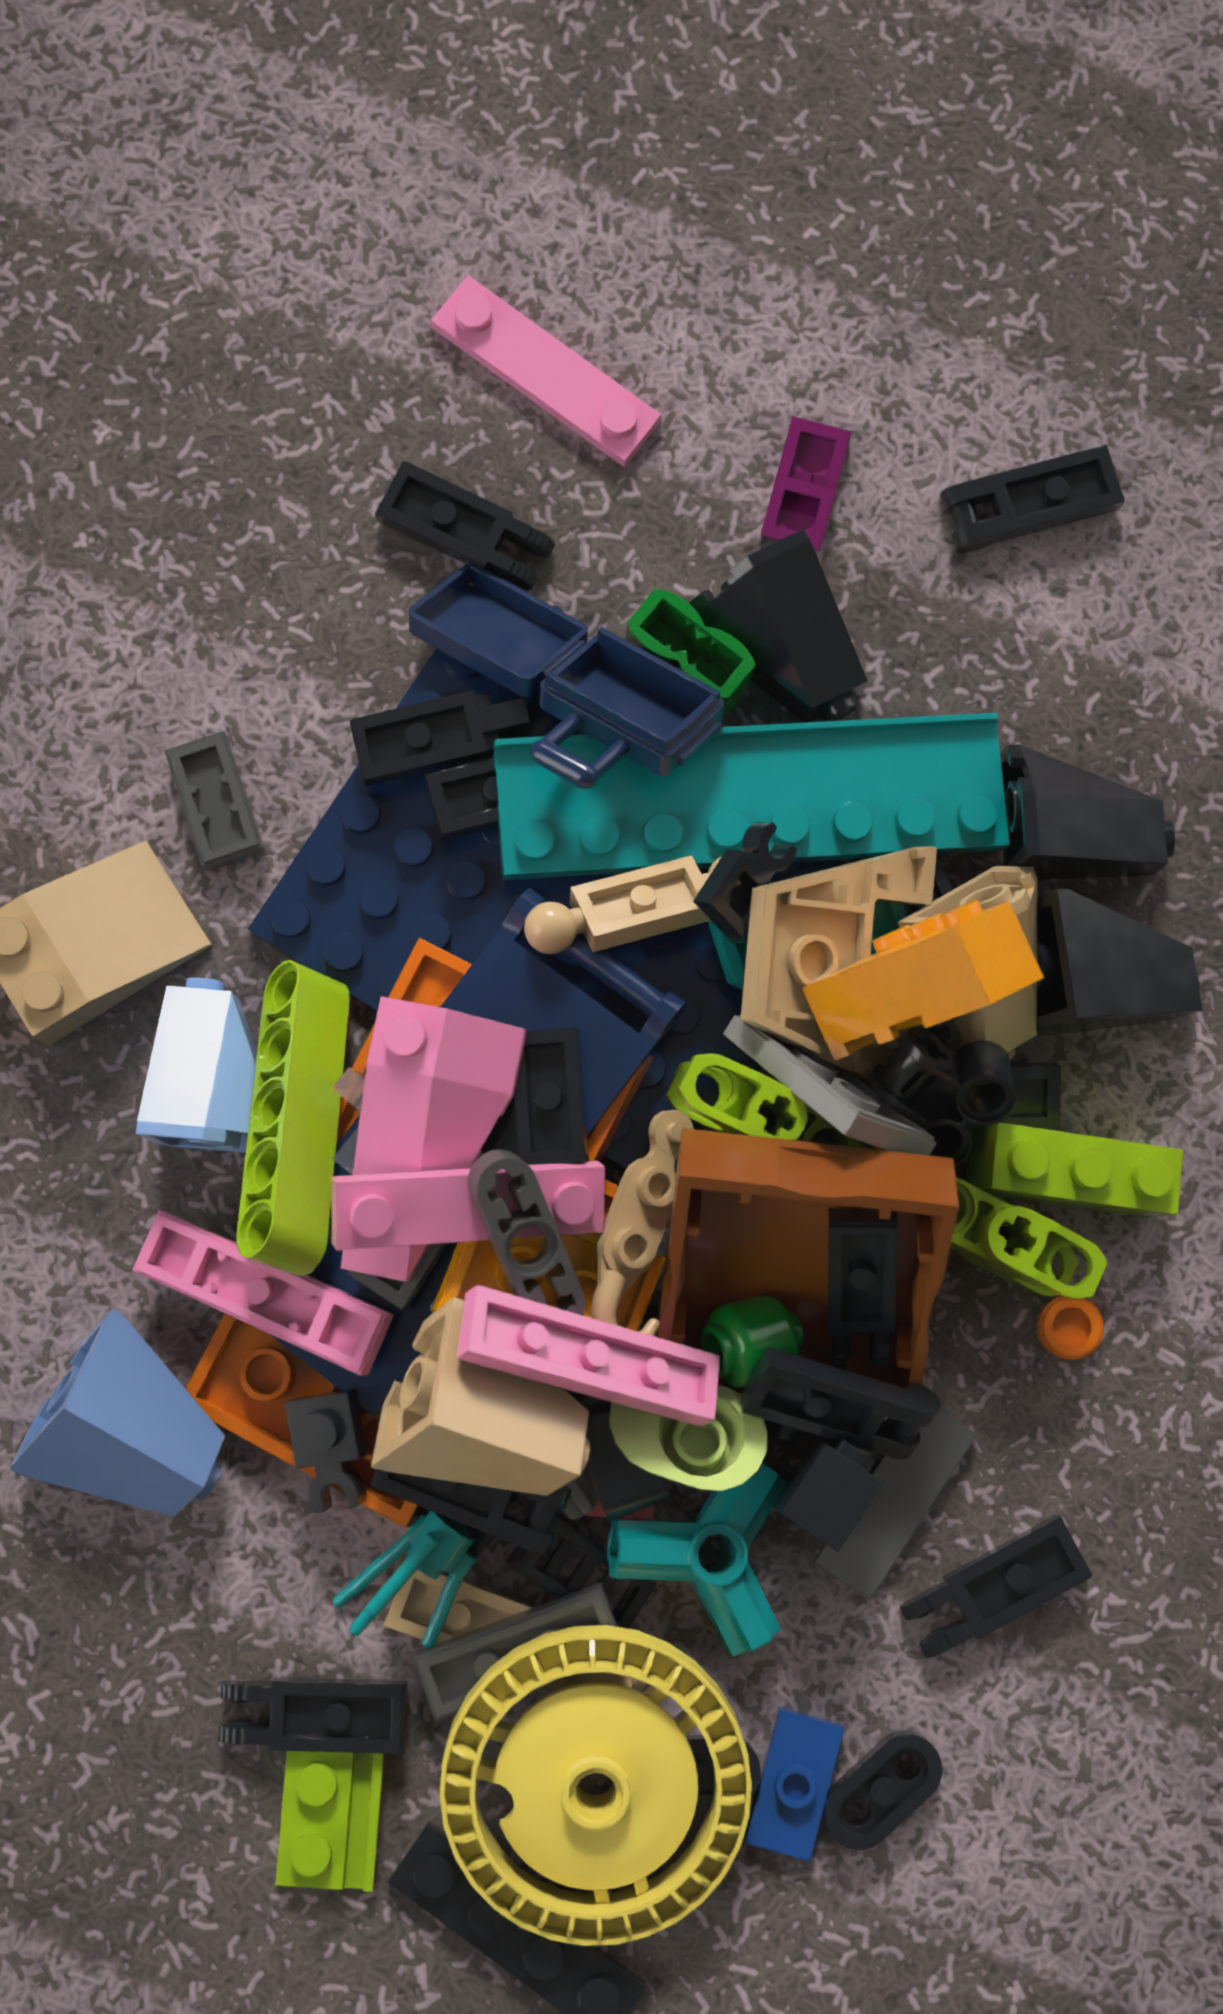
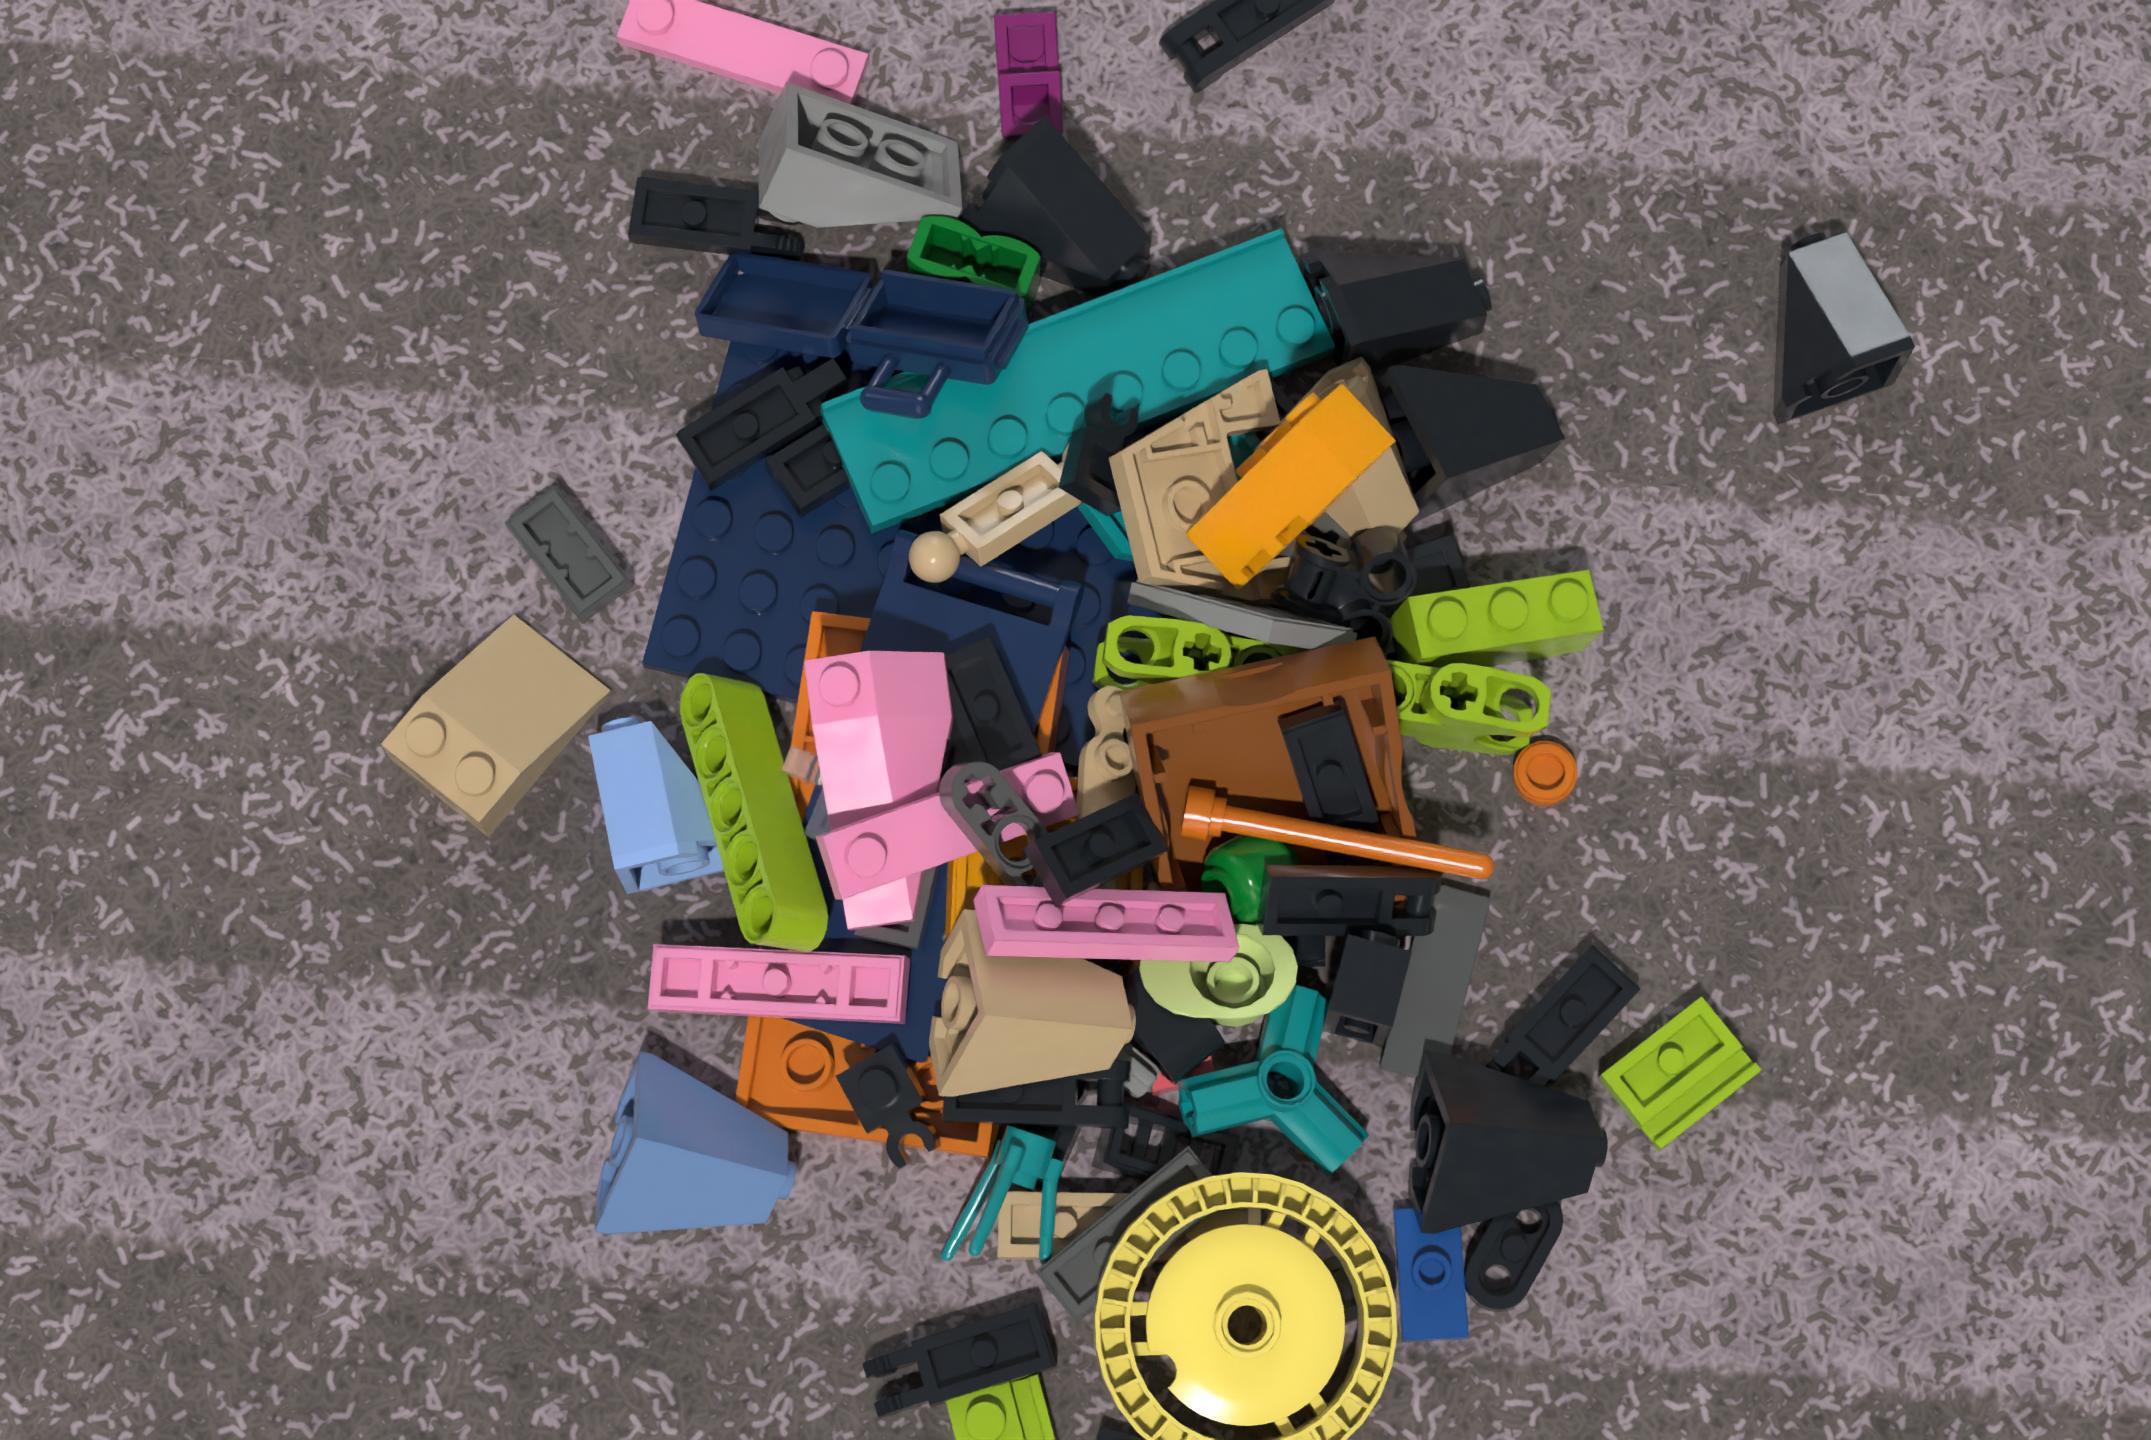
camera: 15 degrees left, 5 degrees down
(604, 1281) = (1095, 849): none -> black plate
(607, 517) = (852, 166): none -> light grey slope
(732, 1275) = (1210, 815): none -> orange piece
(899, 1687) = (1495, 1144): none -> black slope
(1102, 1672) = (1679, 1074): none -> lime plate

